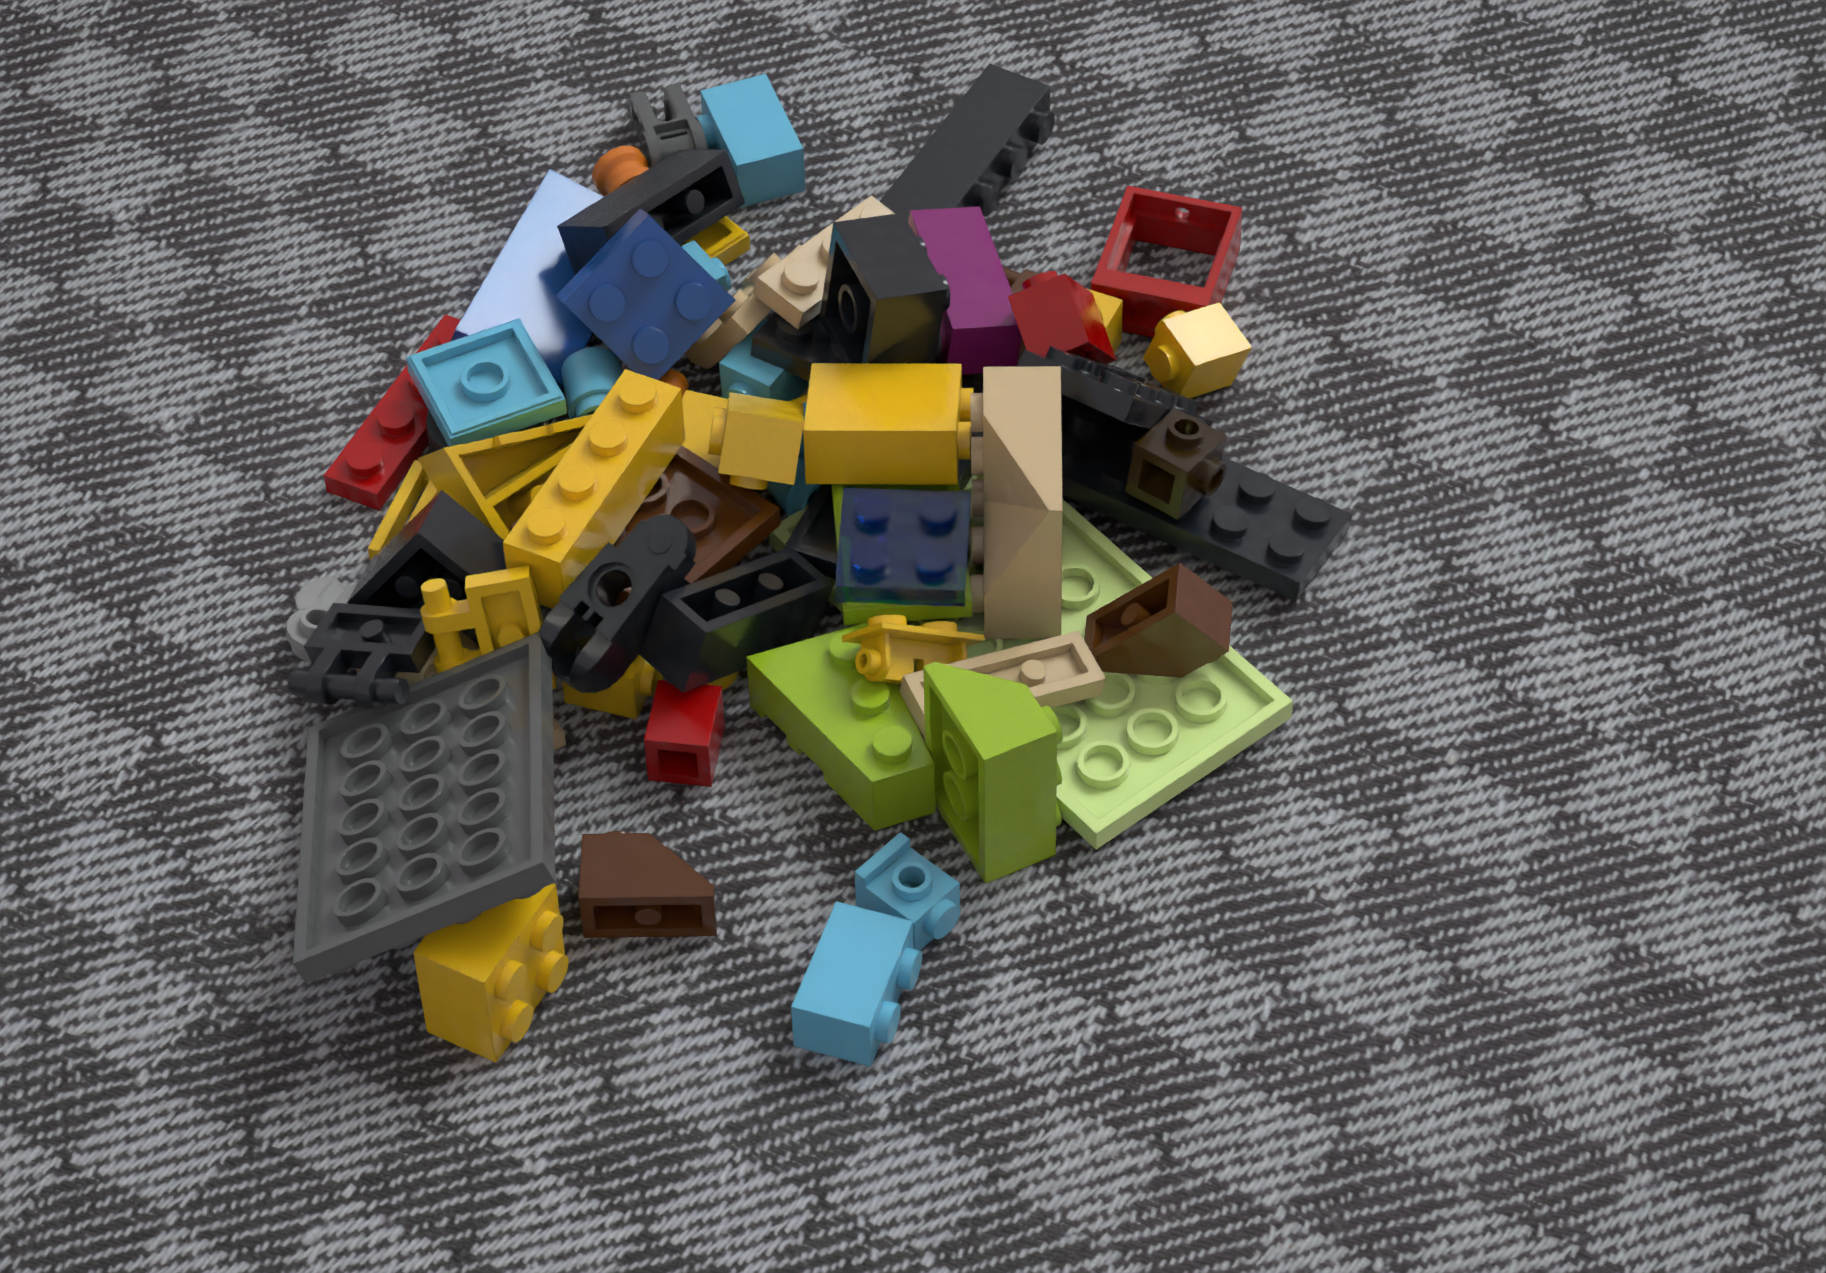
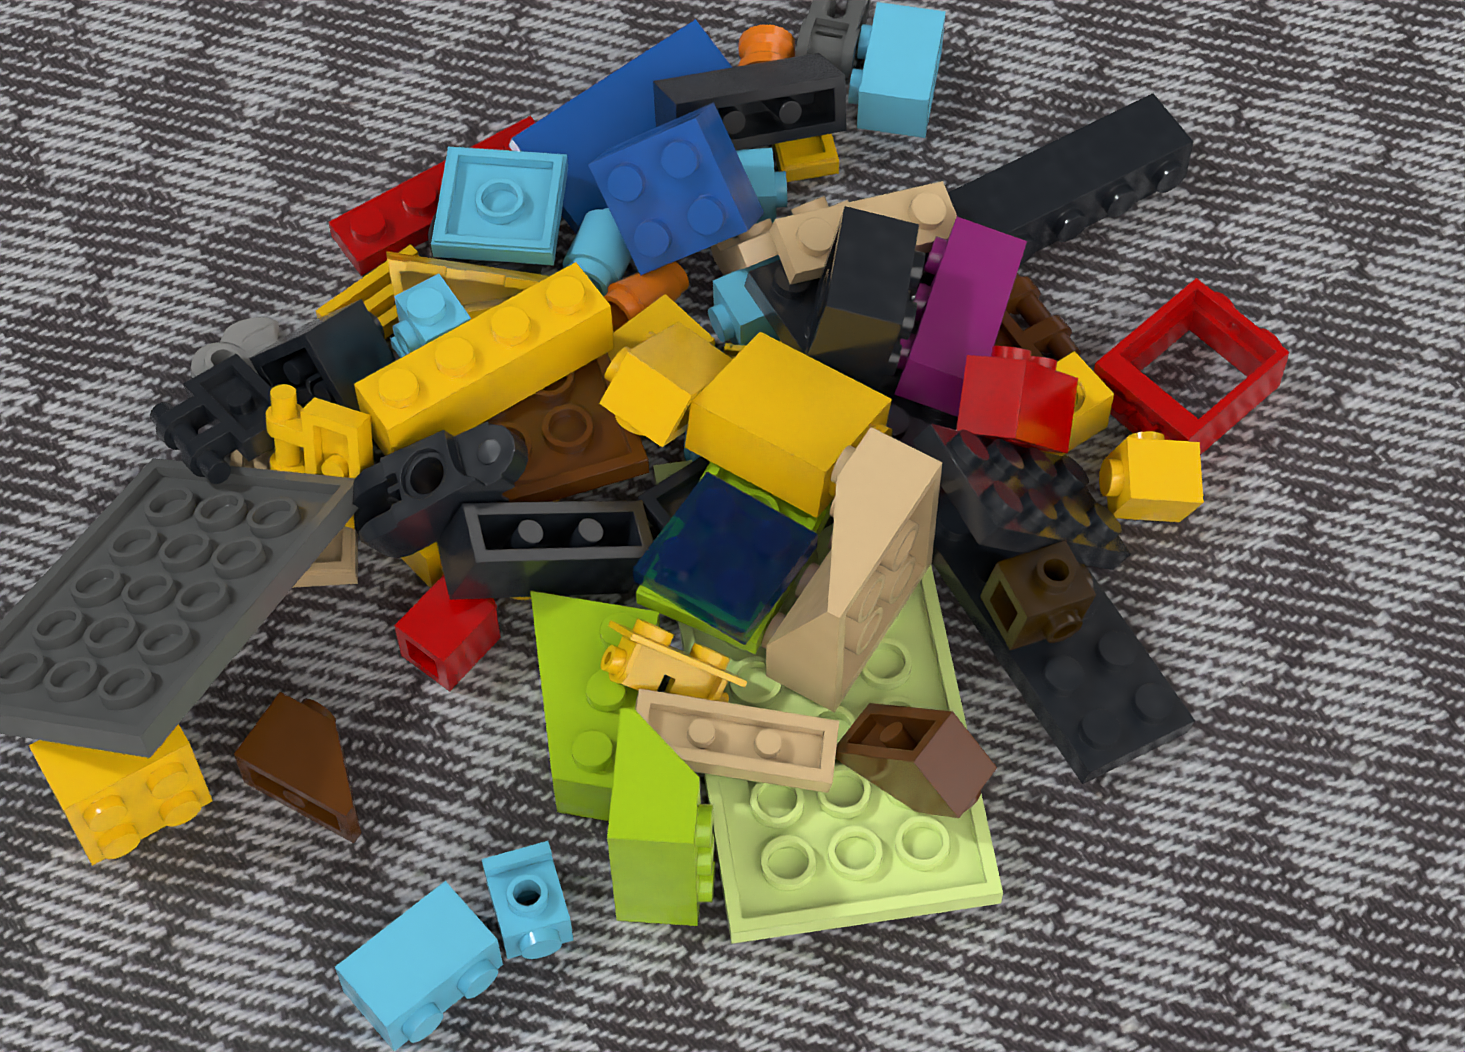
camera: 30 degrees right, 10 degrees up
(517, 474) = (425, 314): none -> medium azure brick

